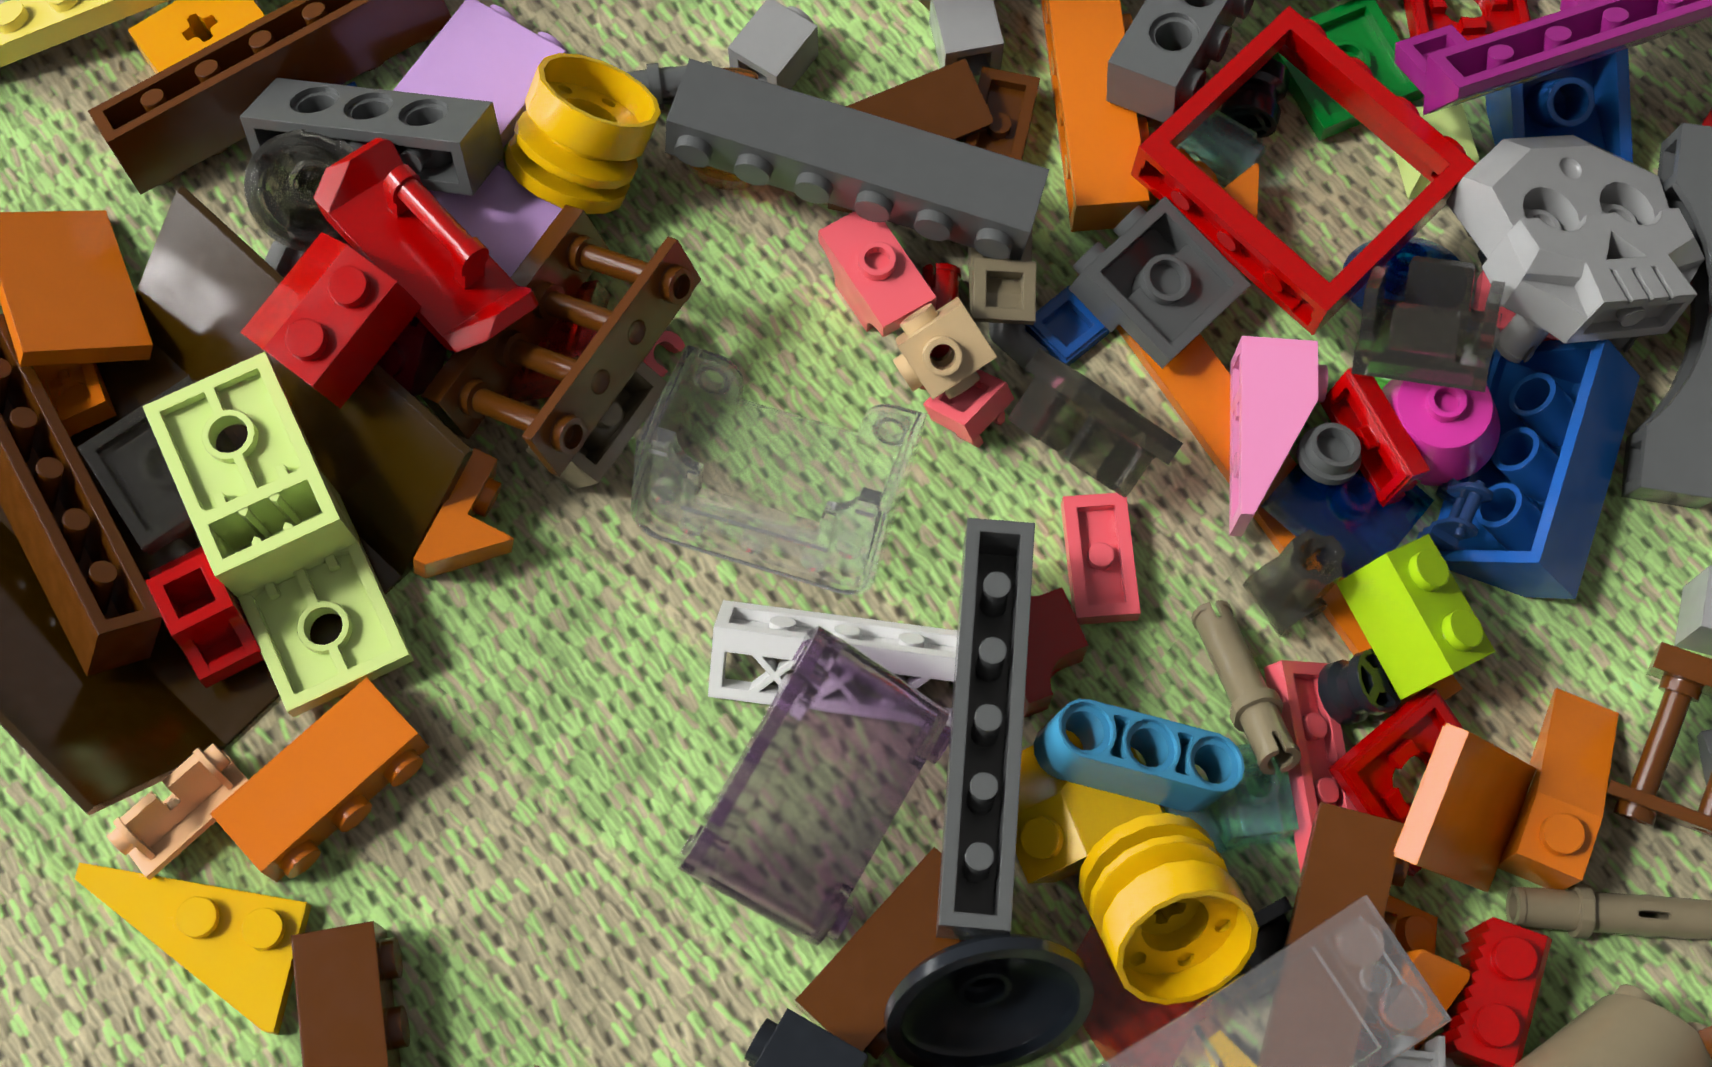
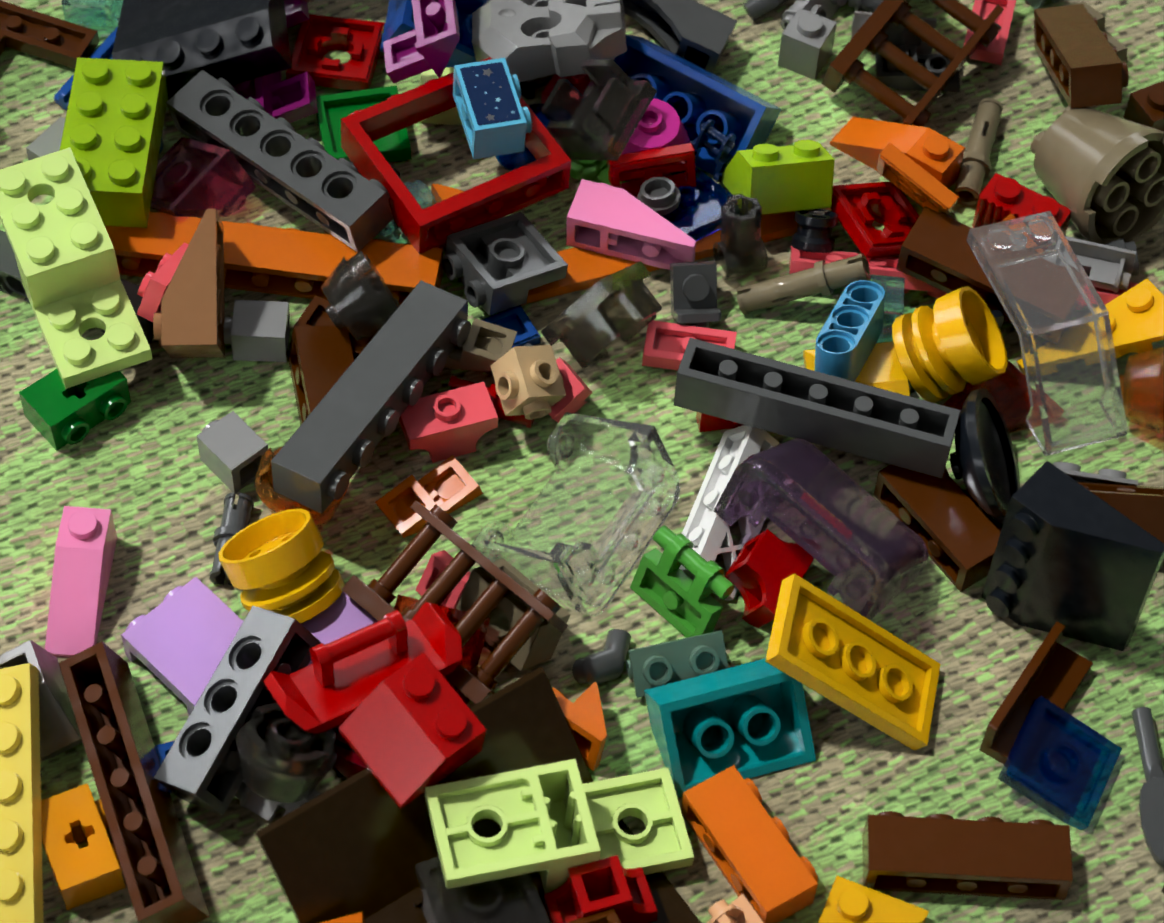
camera: 80 degrees left, 15 degrees down
(503, 722) = (730, 718): none -> teal slope
(569, 555) = (605, 664): none -> dark grey arm
(574, 637) = (676, 660): none -> sand green hinge
(590, 858) = (853, 662): none -> yellow plate
(688, 617) = (673, 593): none -> bright green plate
(726, 726) = (760, 571): none -> red brick
(772, 291) = (445, 485): none -> orange slope
(1020, 110) = (358, 297): none -> clear smoke cone
(1187, 544) = (694, 293): none -> dark grey bracket
(1362, 175) = (490, 108): none -> brick

